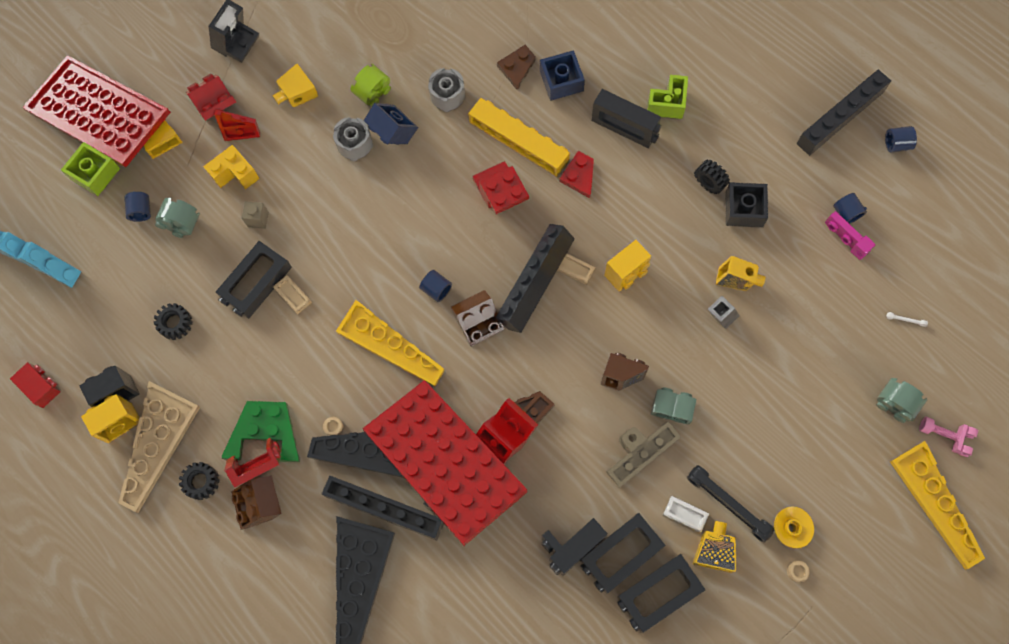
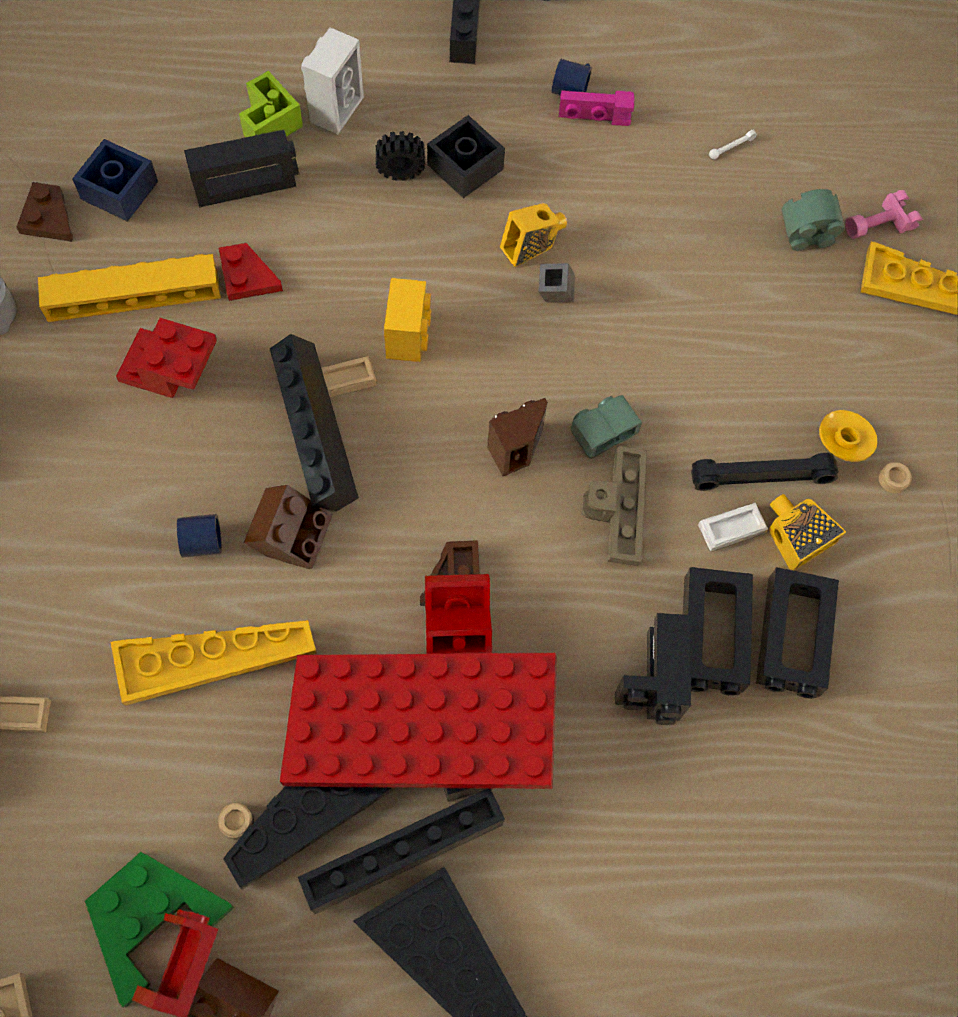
camera: 55 degrees left, 5 degrees down
(715, 108) = (333, 80): none -> white brick

